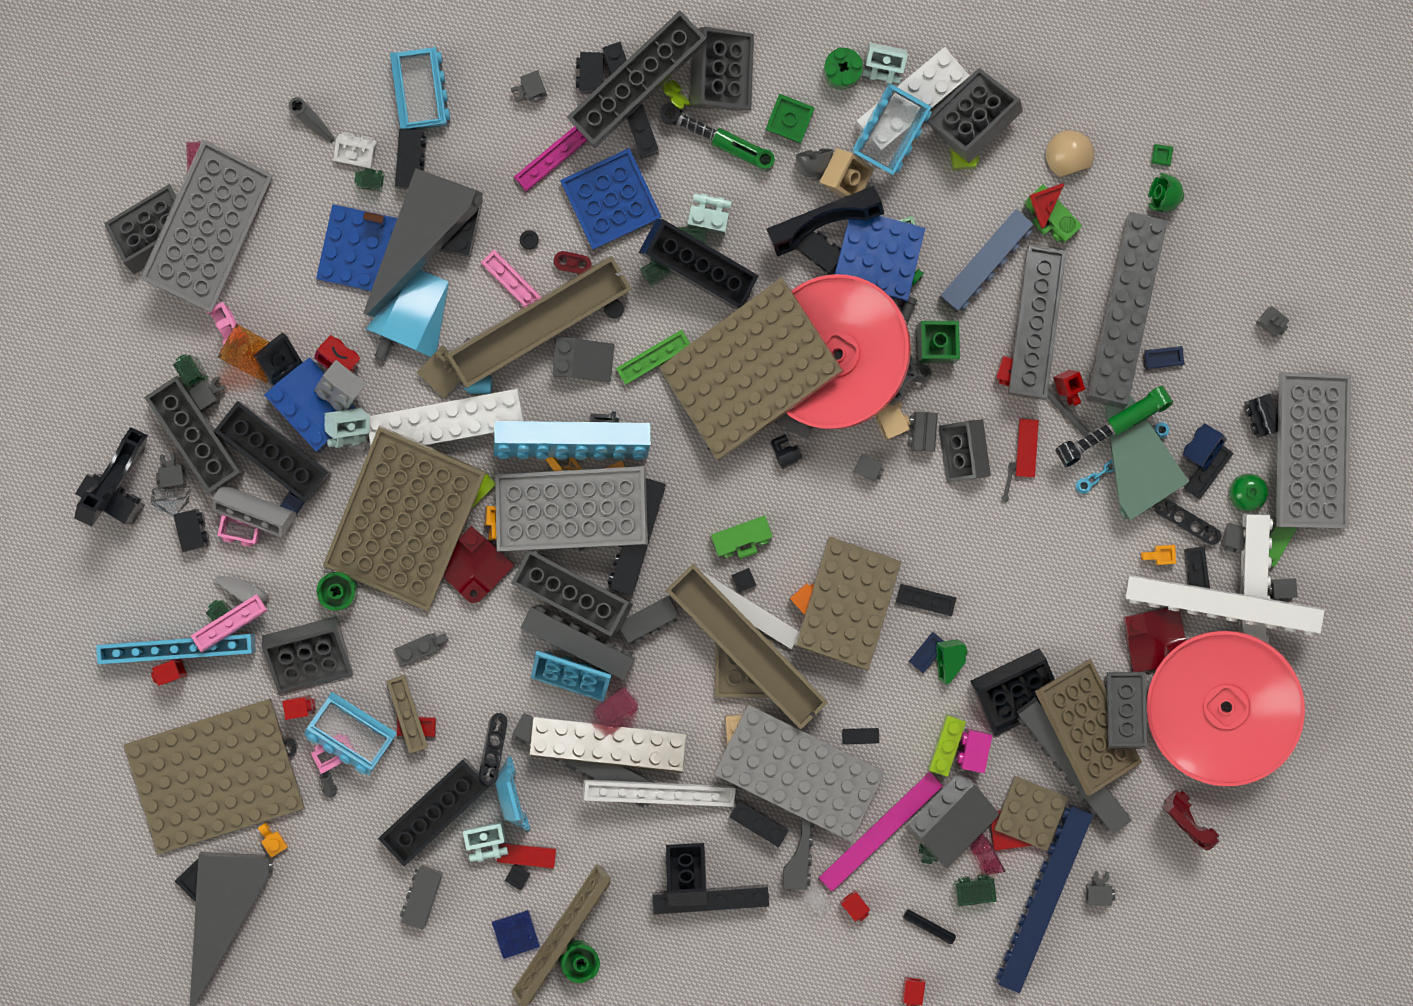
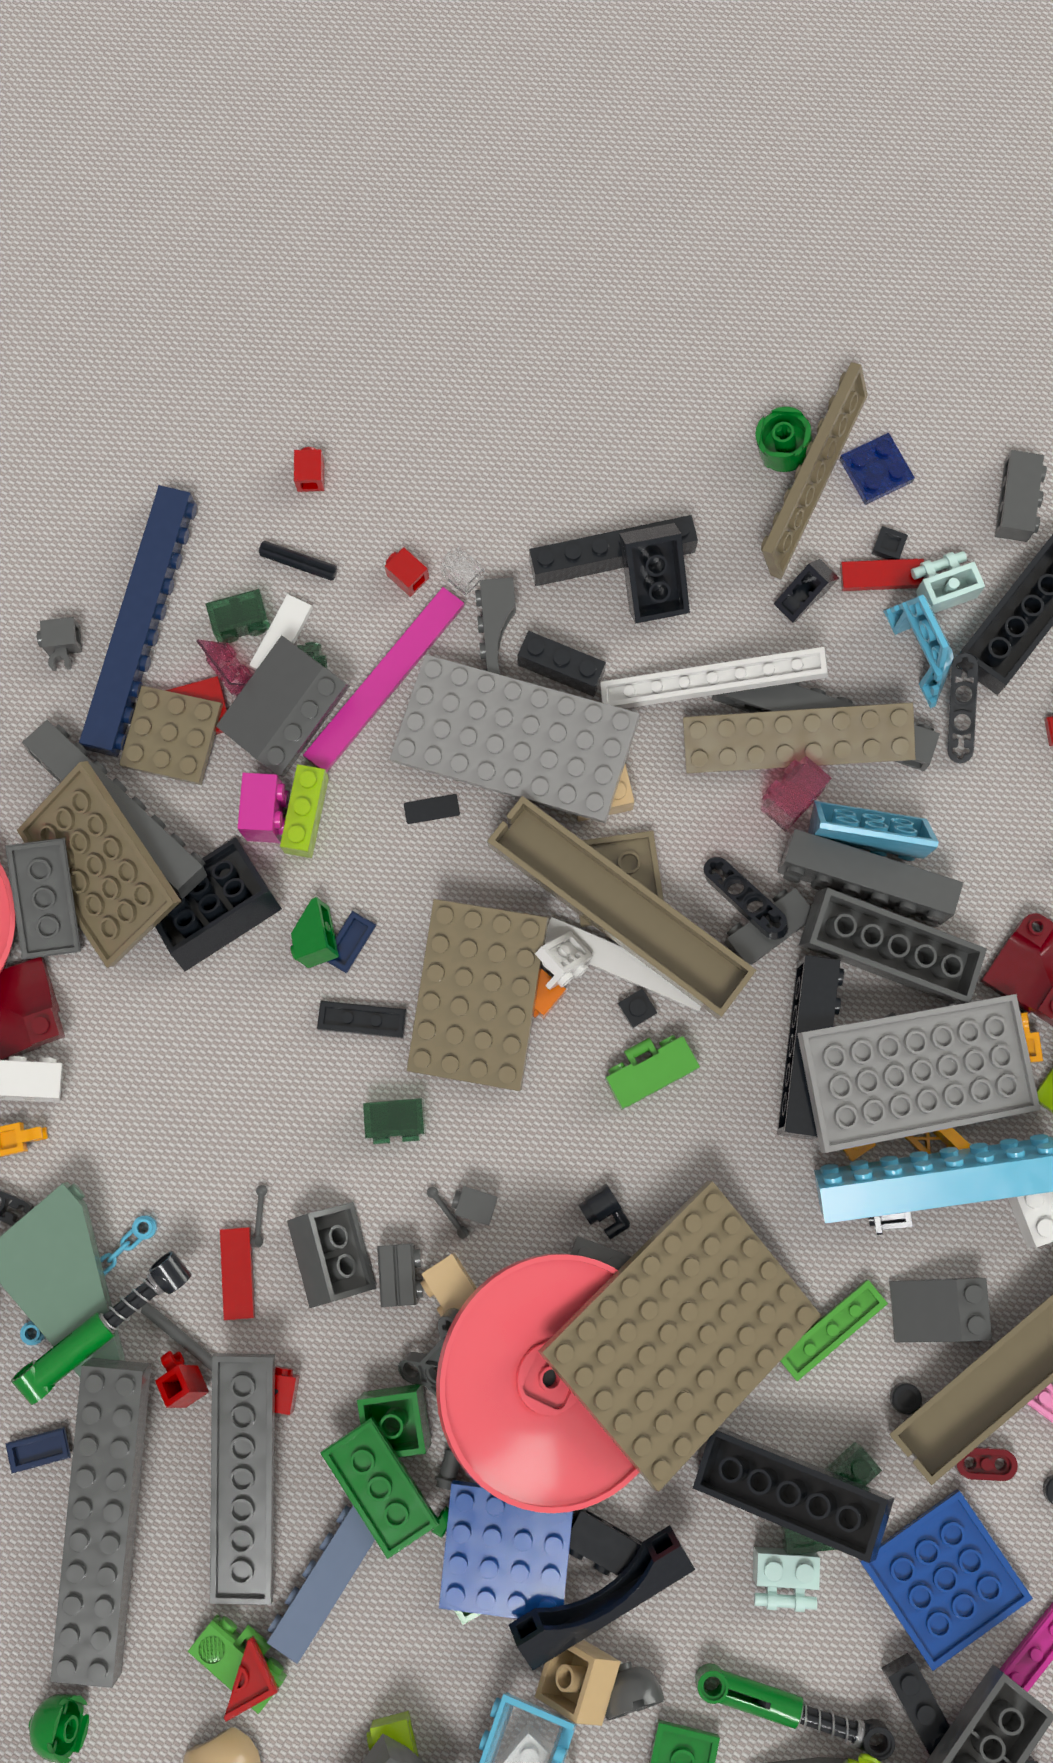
camera: 170 degrees right, 10 degrees down
(582, 850) = (806, 590): none -> black arch
(662, 641) = (743, 899): none -> black beam
(788, 618) = (565, 959): none -> white bracket
(879, 453) = (462, 1231): none -> dark grey hinge
(913, 530) = (394, 1120): none -> clear green brick
(945, 877) = (287, 622): none -> white tile
(952, 304) = (380, 1487): none -> green tile

